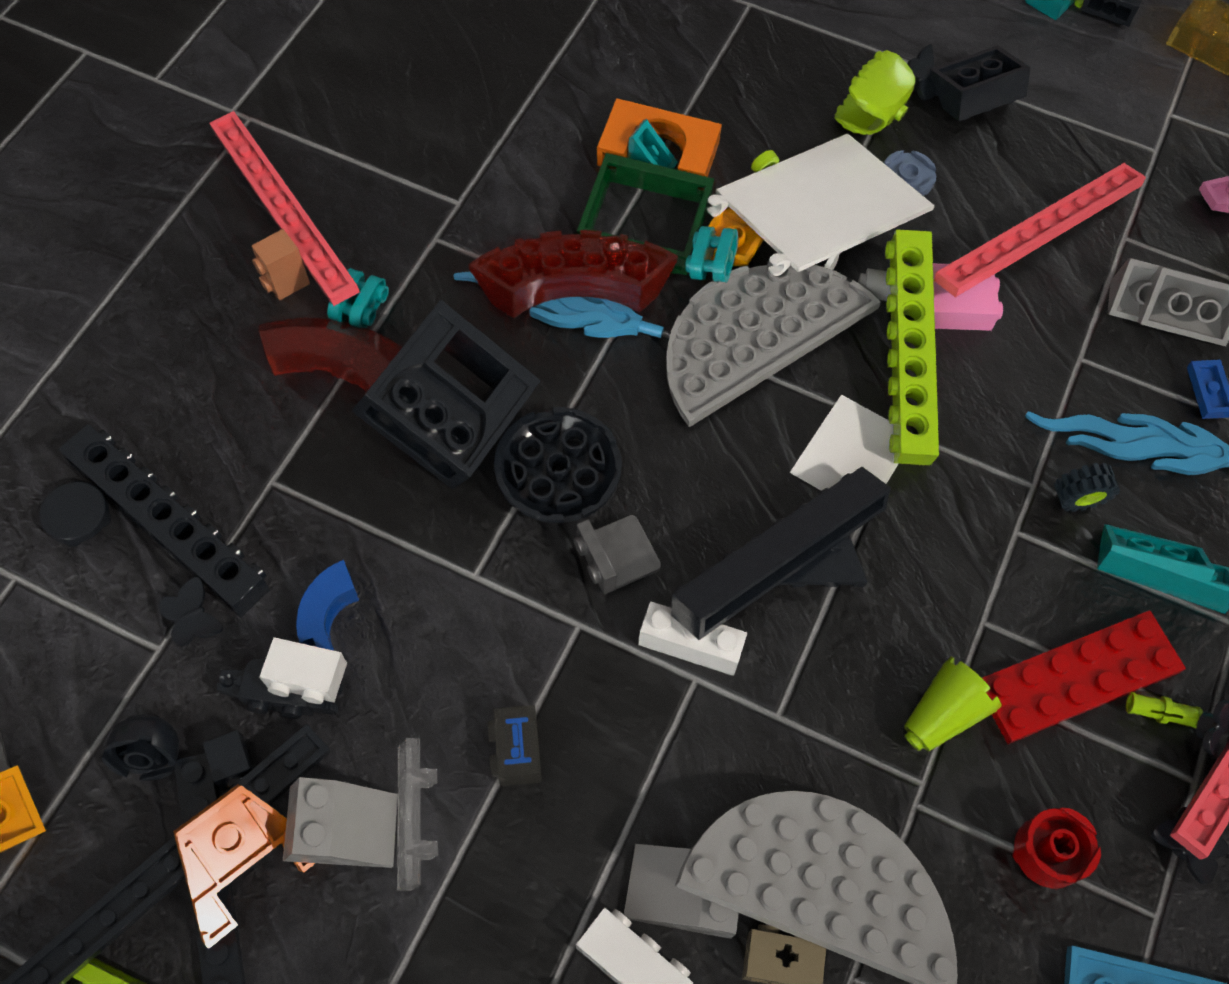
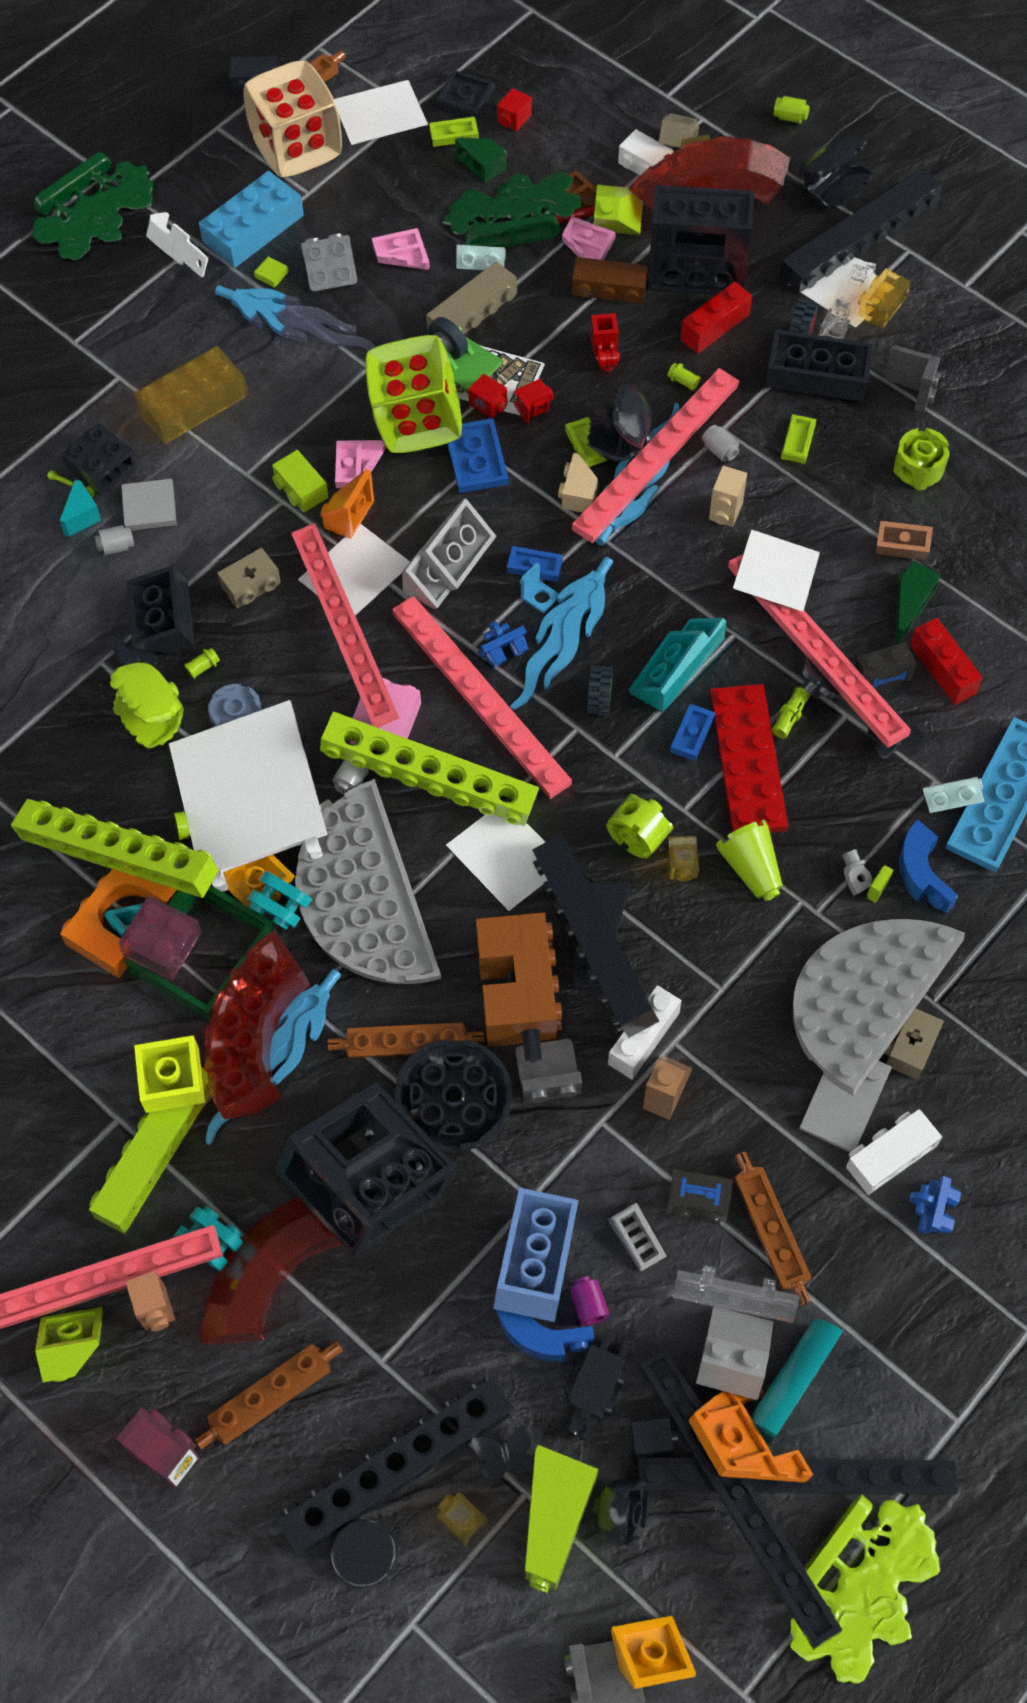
camera: 70 degrees left, 0 degrees up
(119, 590) = (460, 1517): none -> clear yellow window
(124, 674) = (557, 1507): none -> lime slope
(143, 309) = (155, 1445): none -> clear pink brick
(220, 392) = (268, 1394): none -> dark orange plate
(233, 215) = (67, 1342): none -> lime slope
(303, 671) = (599, 1349): white brick -> none
(321, 902) = (794, 1378): none -> teal brick
(370, 657) = (588, 1301): none -> magenta brick
(398, 583) = (536, 1254): none -> medium blue brick
(429, 228) = (143, 1163): none -> lime brick
(456, 673) = (646, 1231): none -> light grey slope
(497, 208) = (169, 1074): none -> neon yellow brick
(499, 839) = (772, 1228): none -> dark orange plate
(610, 410) = (399, 1040): none -> dark orange plate
(633, 165) = (160, 938): none -> clear pink brick
(637, 673) = (665, 1086): none -> medium nougat slope
(678, 510) = (525, 1006): none -> dark orange piece
(715, 112) = (116, 847): none -> lime brick
(920, 629) = (682, 858): none -> clear yellow window
(937, 568) = (639, 826): none -> lime brick
(944, 133) = (202, 663): none -> lime pin
(981, 869) = (879, 883): none -> lime tile
(988, 833) = (853, 869): none -> light grey piece
(1022, 385) = (482, 697): none -> coral plate
(1038, 30) = (114, 540): none -> light grey brick
(1039, 905) = (916, 872): none -> blue arch
(1054, 142) = (249, 578): none -> dark tan brick
(1072, 859) = (877, 826): red brick -> none
(1084, 603) = (692, 732): none -> blue plate
(1091, 47) = (149, 504): none -> light grey tile
(1101, 378) = (493, 649): none -> blue hips
(1117, 235) = (363, 566): none -> white sticker
(1145, 940) = (954, 794): none -> light aqua hinge
(1183, 391) = (532, 585): none -> dark azure bracket
(1184, 201) = (349, 506): none -> orange slope
(1186, 153) = (300, 481): none -> lime brick

